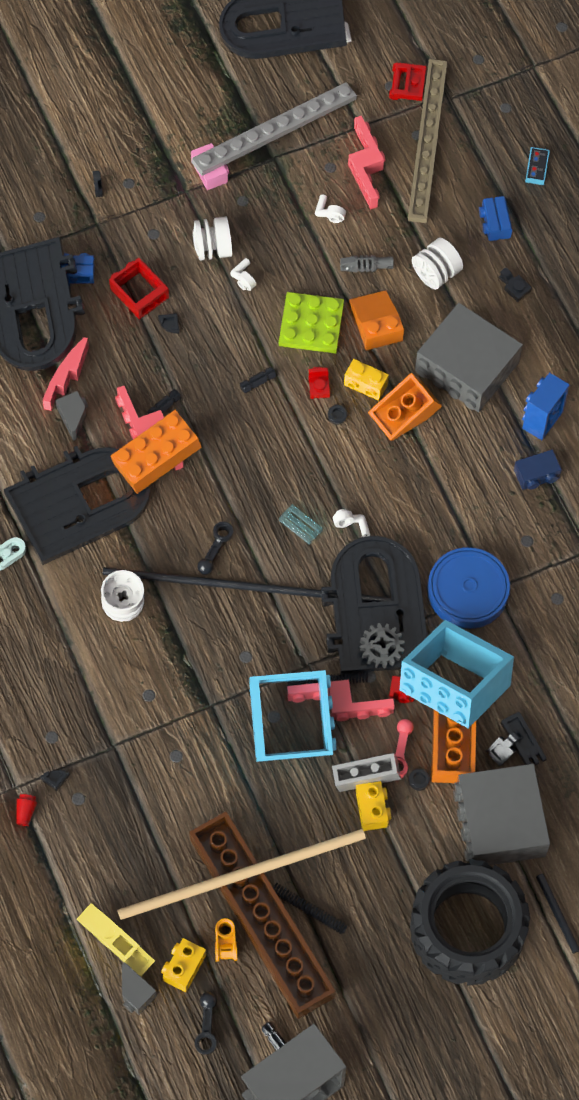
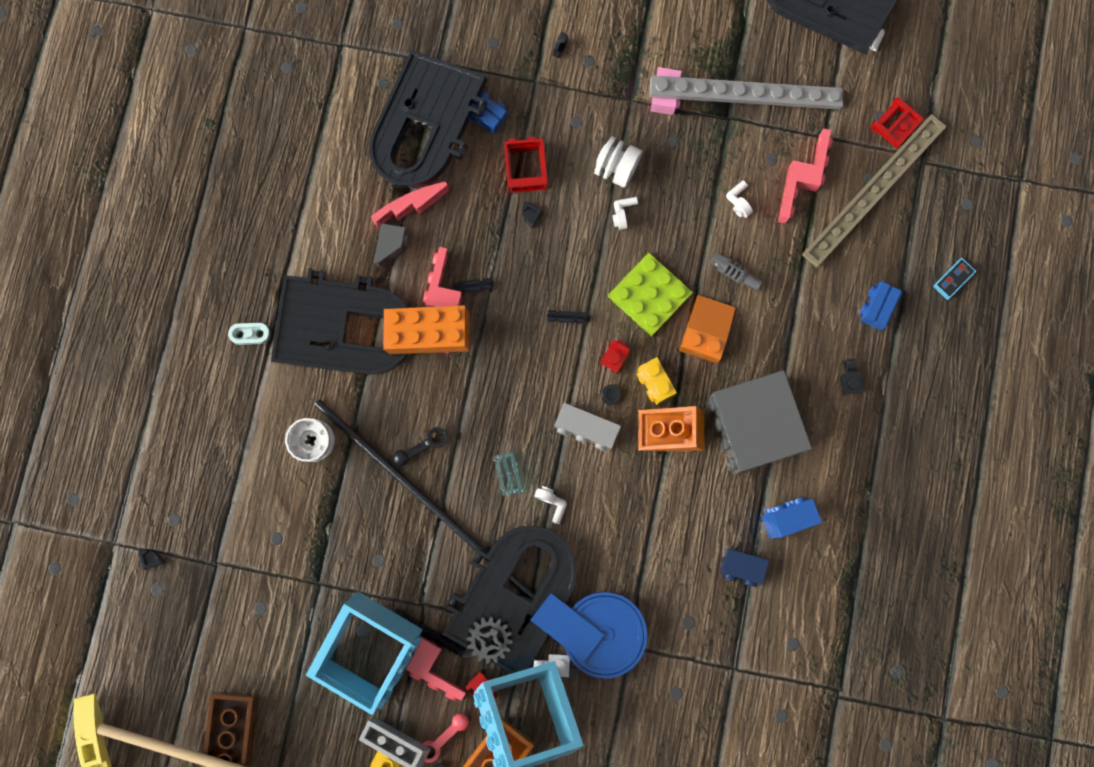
camera: 35 degrees right, 15 degrees up
(25, 808) = (107, 568): red cone -> none
(337, 447) = (586, 427): none -> light grey brick
(435, 597) = (567, 627): none -> blue piece
(437, 263) = (796, 316): white wheel -> none

